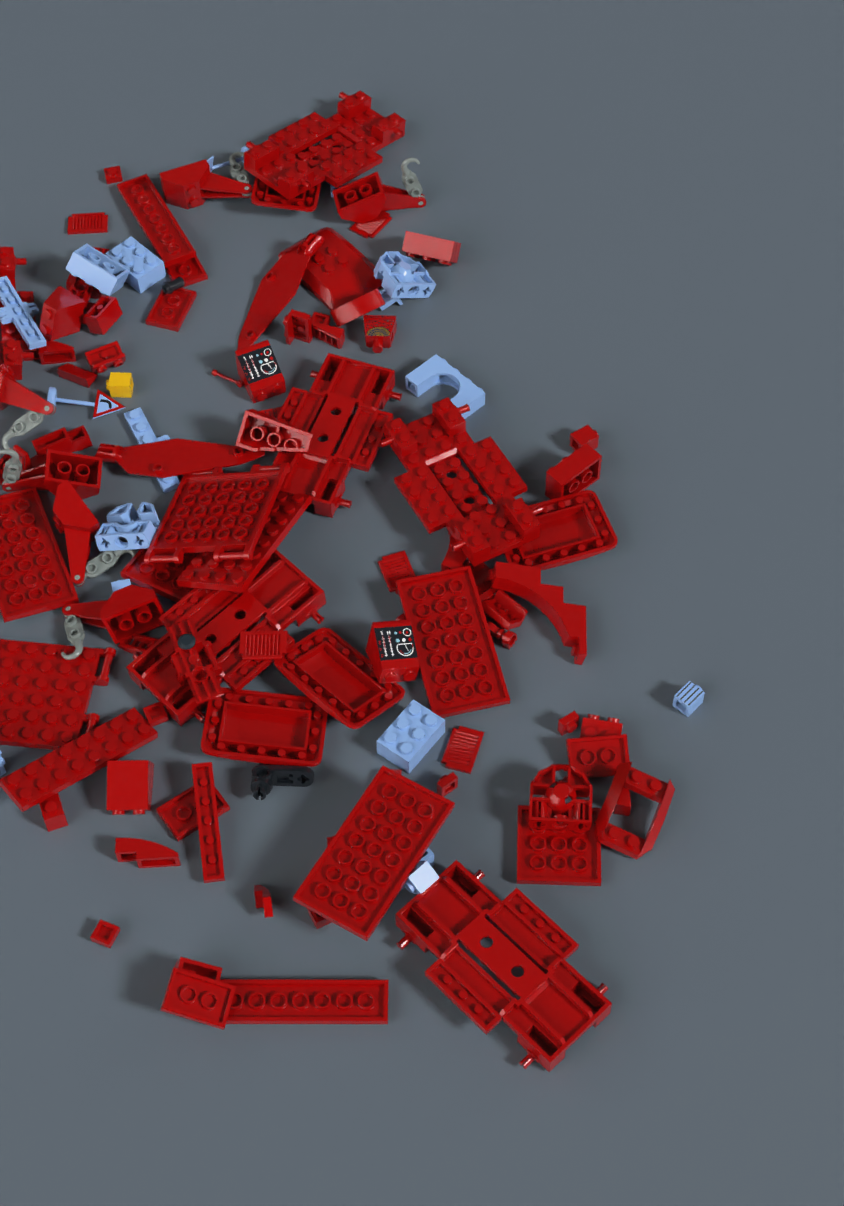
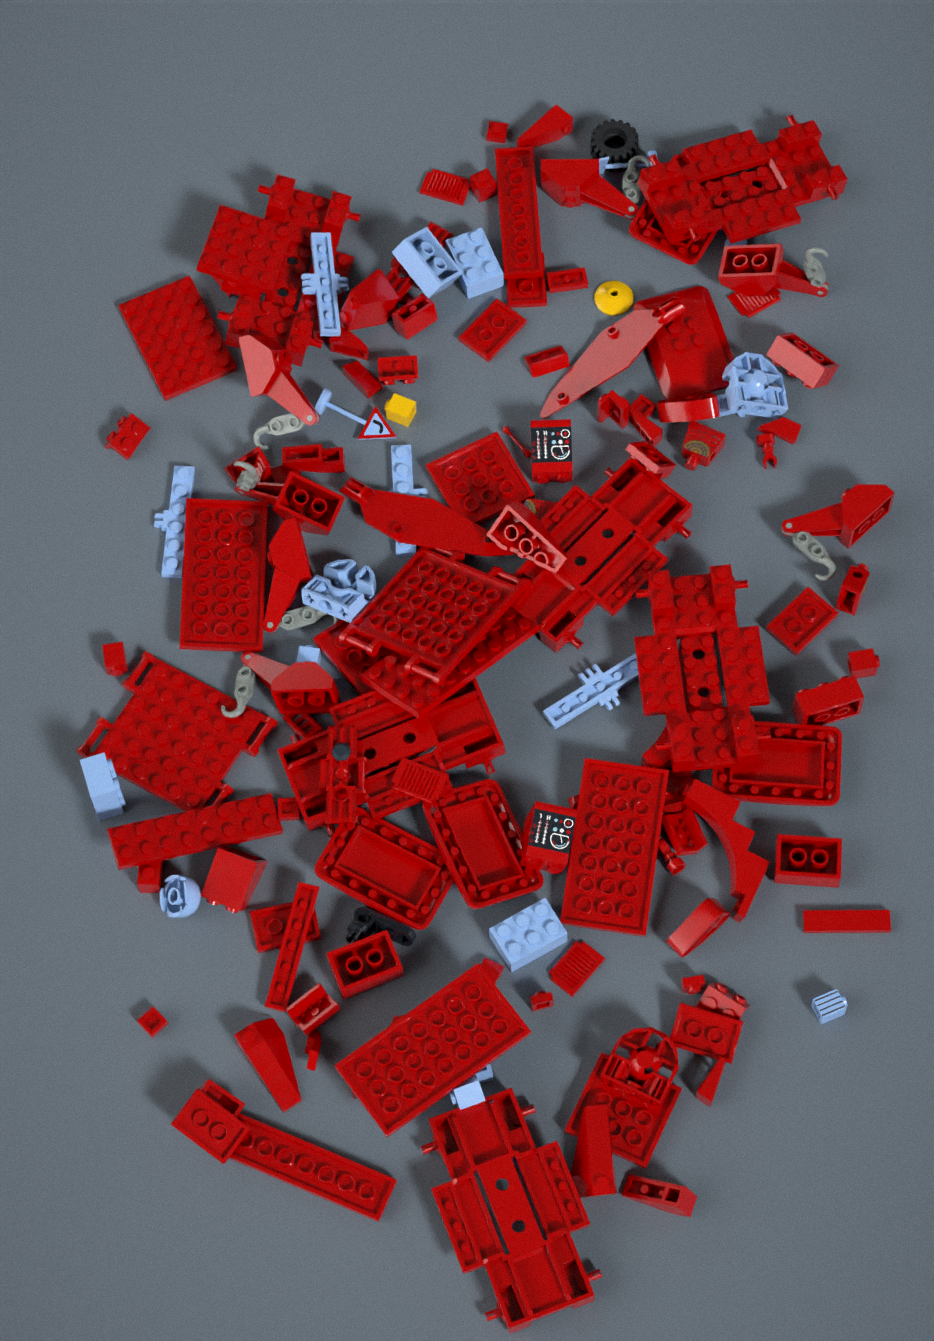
camera: 25 degrees right, 10 degrees up
(87, 817) = (180, 896): none -> light blue cylinder
(118, 210) = (483, 185): none -> red brick
(146, 853) = (220, 954): red slope -> none
(153, 159) = (547, 129): none -> red slope
(169, 287) = (503, 305): black pin -> none
(208, 412) = (480, 479): none -> red plate
(215, 146) = (614, 133): none -> black tyre
(216, 254) = (567, 280): none -> red plate
(225, 922) = (269, 1056): none -> red wedge
(226, 315) = (547, 361): none -> red slope
(248, 867) = (312, 1009): none -> red bracket
(259, 257) = (611, 304): none -> yellow dish
(279, 811) = (365, 964): none -> red brick
(344, 350) = (651, 459): none -> red plate
(378, 531) = (597, 688): none -> light blue hinge
(395, 567) = (597, 740): red window -> none
(429, 313) = (766, 442): none -> red piece
(437, 300) = (782, 428): none -> red slope
(438, 372) = (742, 519): light blue arch -> none
(521, 344) = (849, 520): none -> red slope
(521, 427) = (802, 621): none -> red plate
(550, 384) = (854, 582): none -> red torso
(551, 676) = (698, 927): none -> red beam
(553, 889) = (593, 1158): none -> red wedge
(615, 595) = (808, 860): none -> red brick
(627, 900) = (660, 1195): none -> red slope
(644, 785) = (734, 1083): red wedge -> none
(668, 631) = (846, 921): none -> red tile

